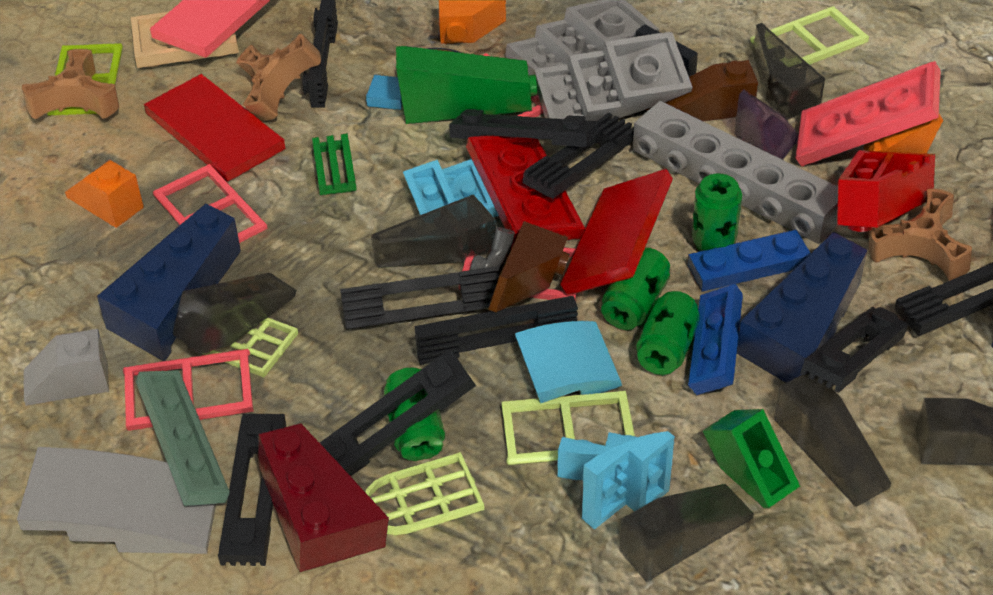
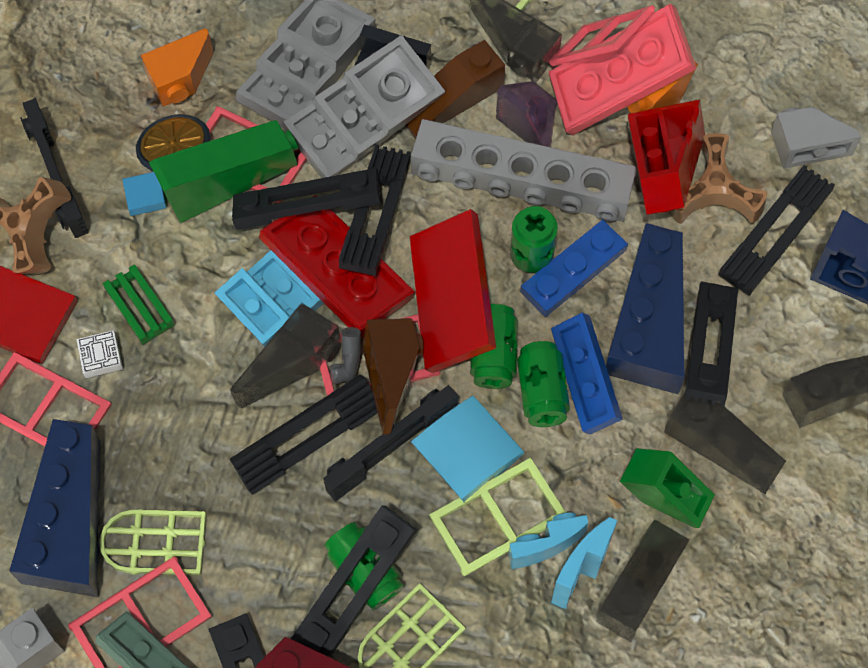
camera: 25 degrees left, 20 degrees up
(226, 311) = (139, 525): clear smoke slope -> none
(279, 187) = (99, 354): none -> white tile
(863, 80) = (594, 47): none -> coral window

